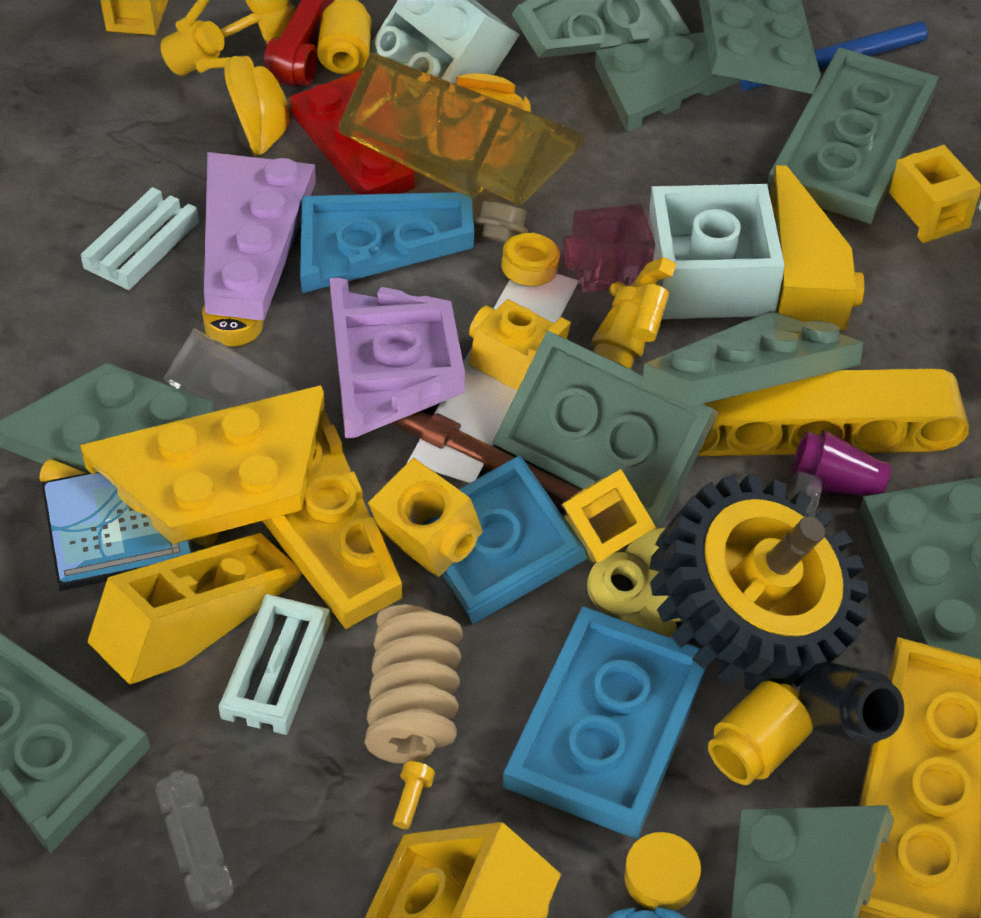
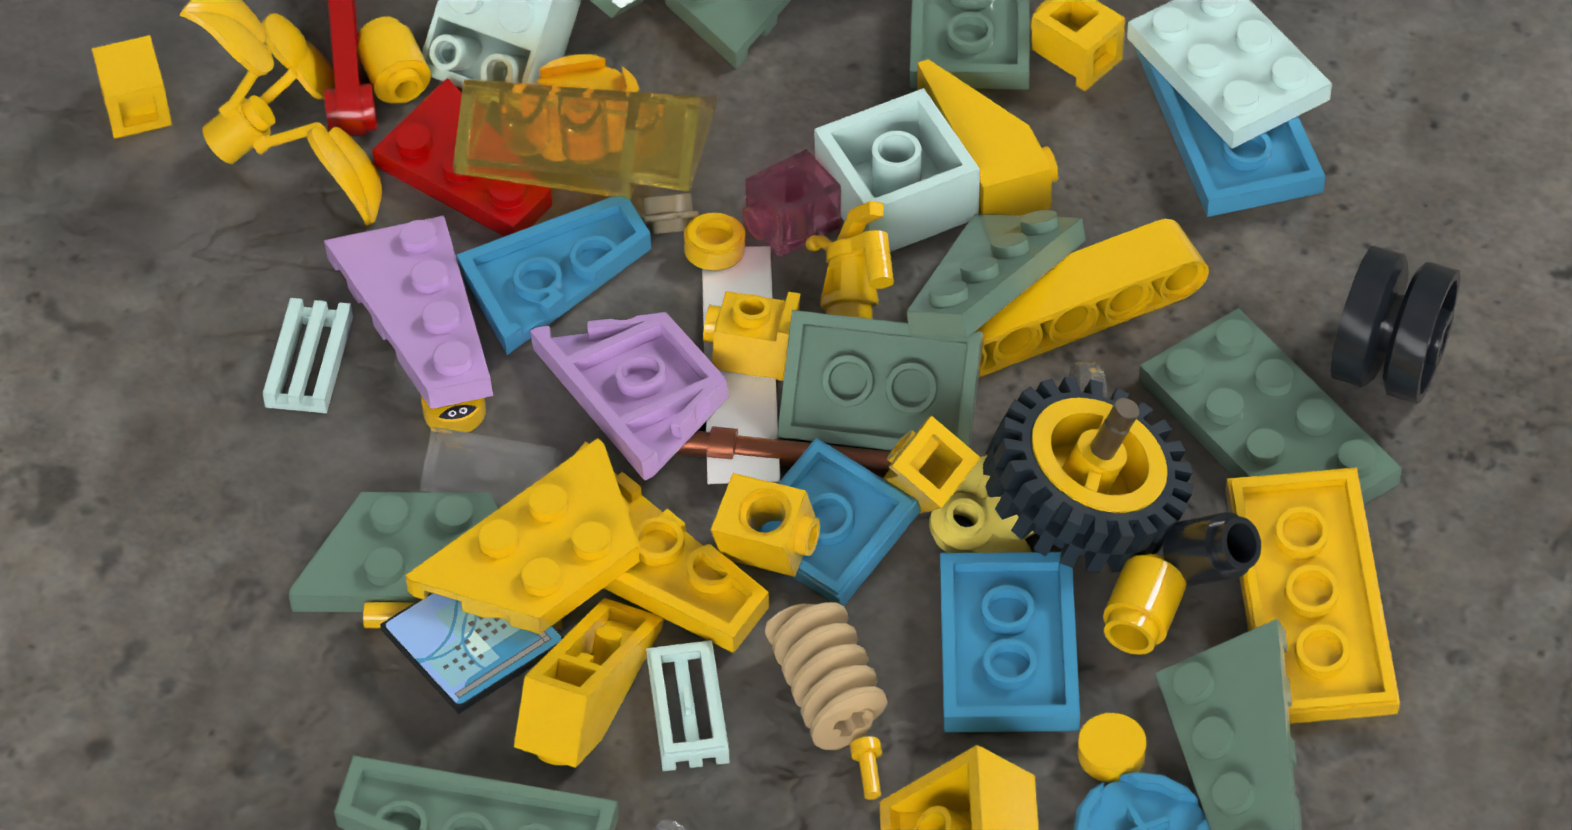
camera: 20 degrees left, 0 degrees up
(840, 465) = (1107, 342): magenta cone -> none

